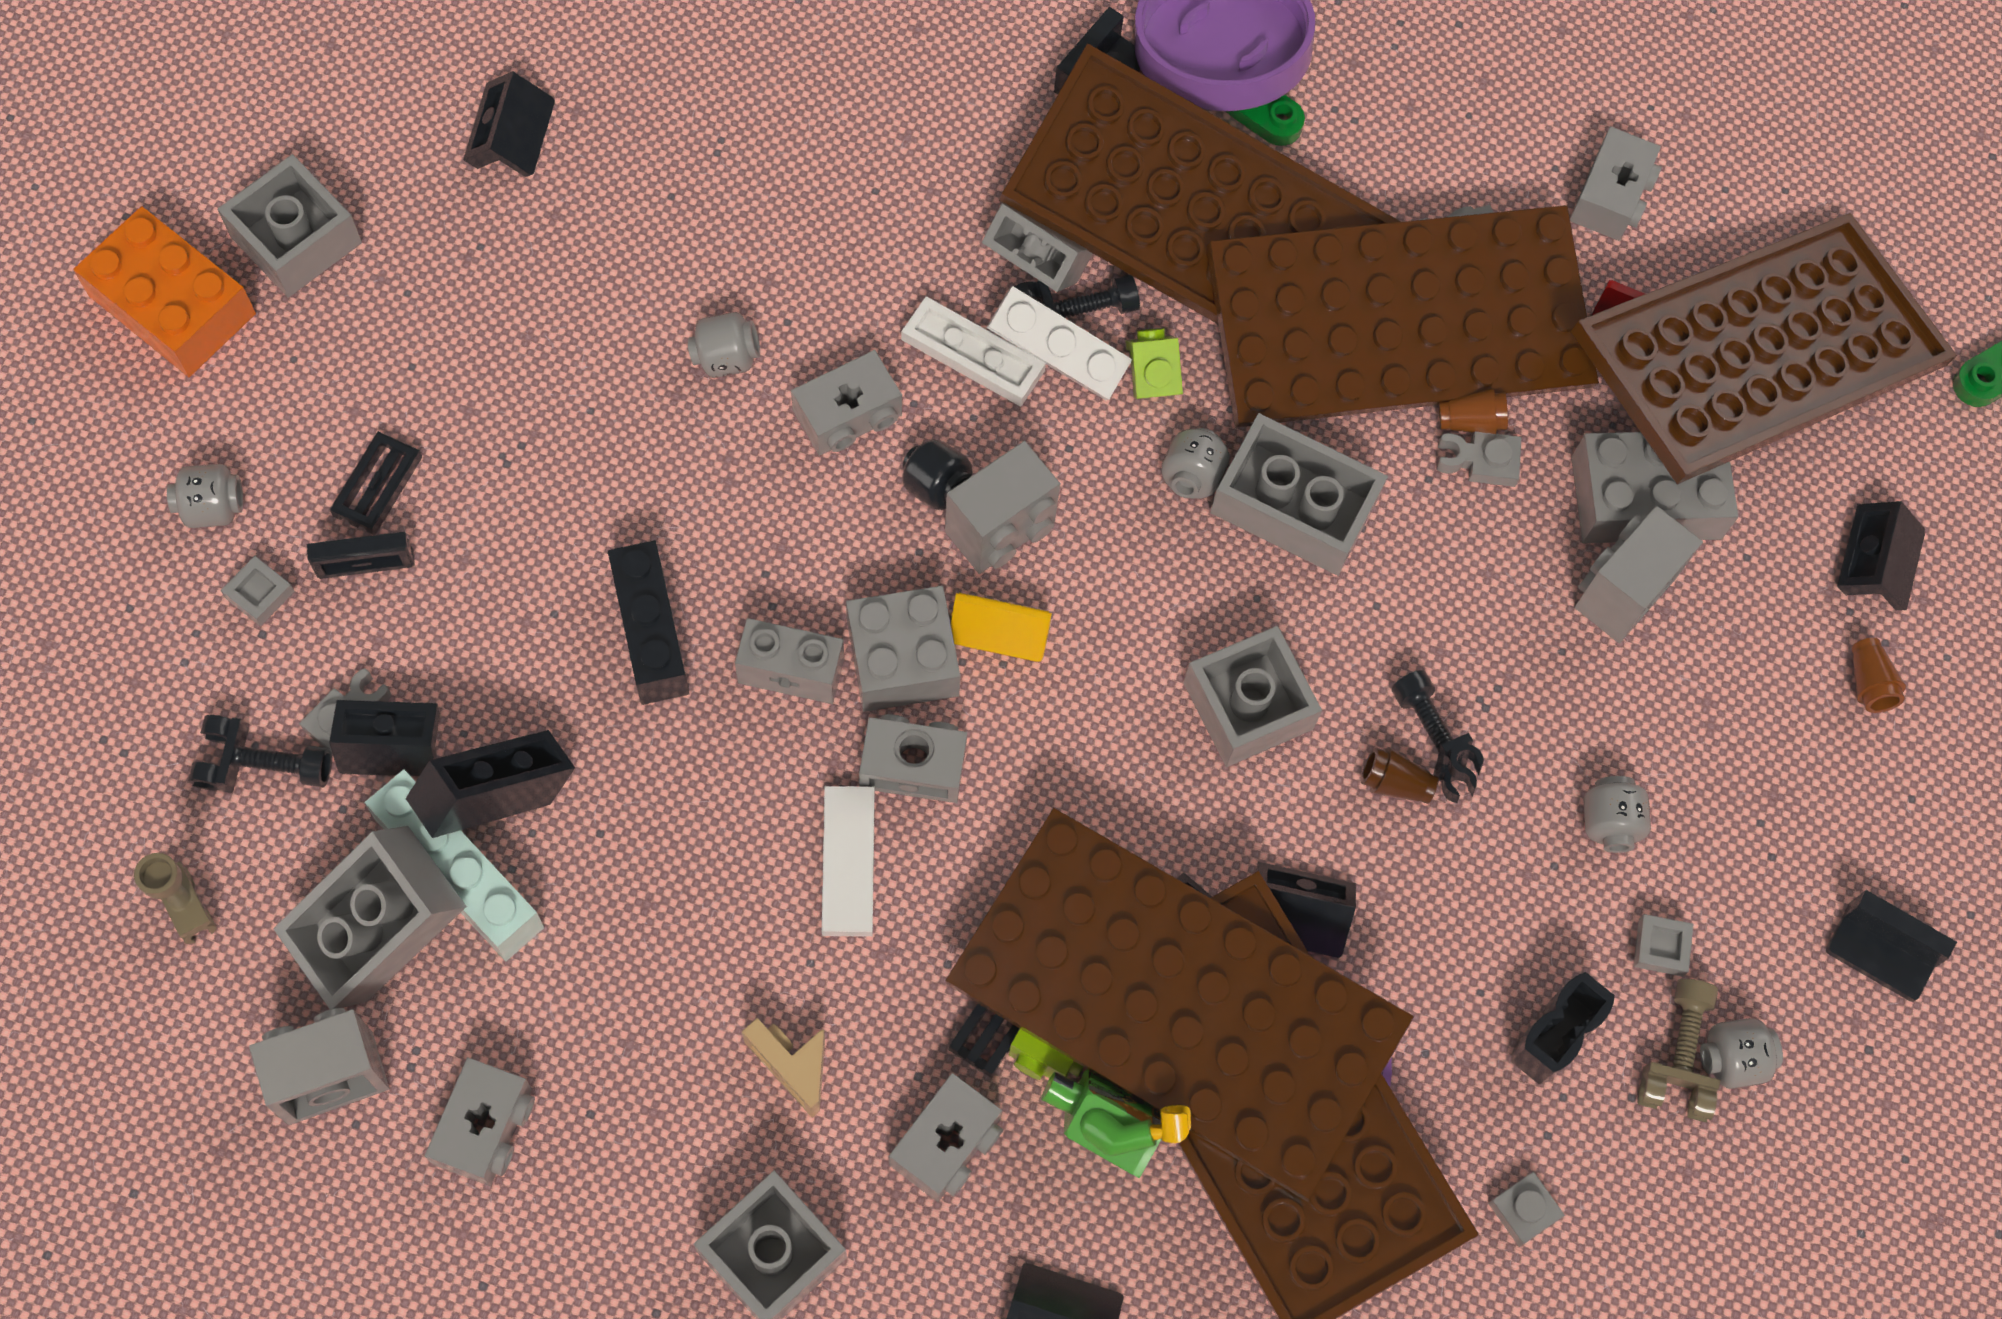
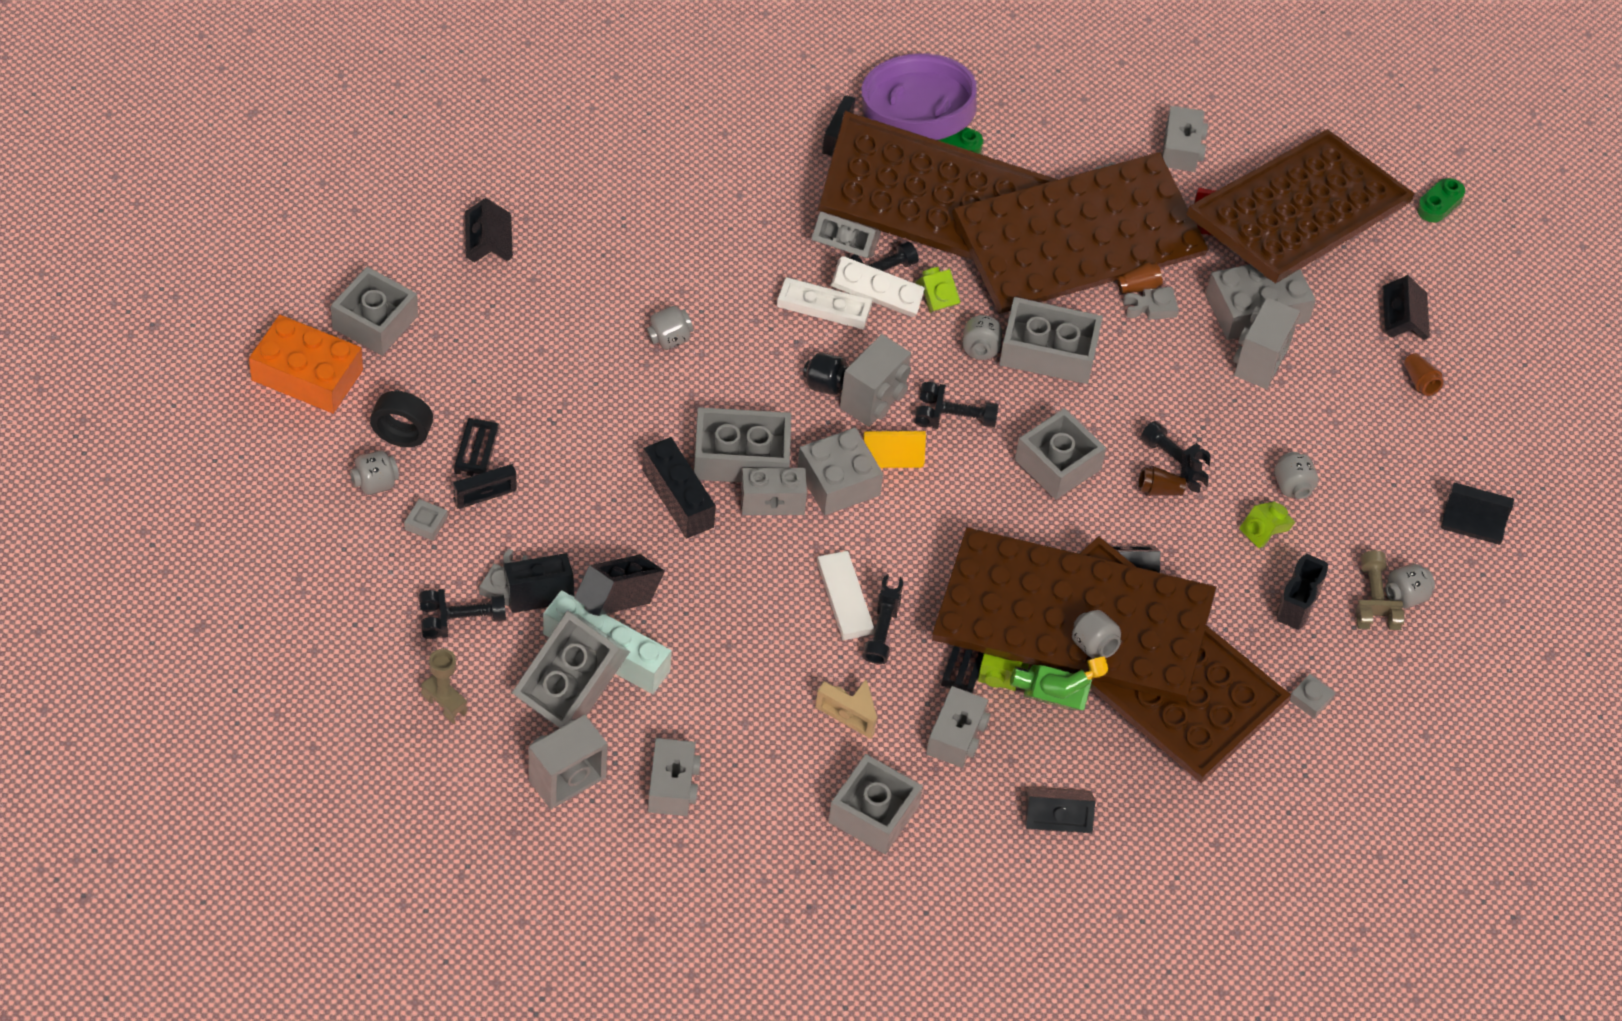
camera: 15 degrees left, 15 degrees down
(267, 418) = (403, 405): none -> black tyre
(763, 571) = (739, 440): none -> light grey brick
(847, 403) = (757, 345): light grey brick -> none
(865, 969) = (888, 604): none -> black bar
(933, 778) = (882, 536): light grey brick -> none
(1091, 541) = (933, 393): none -> black bar
(1190, 1064) = (1096, 634): none -> light grey head
(1545, 885) = (1266, 521): none -> lime bracket
(1663, 945) = (1346, 540): light grey plate -> none

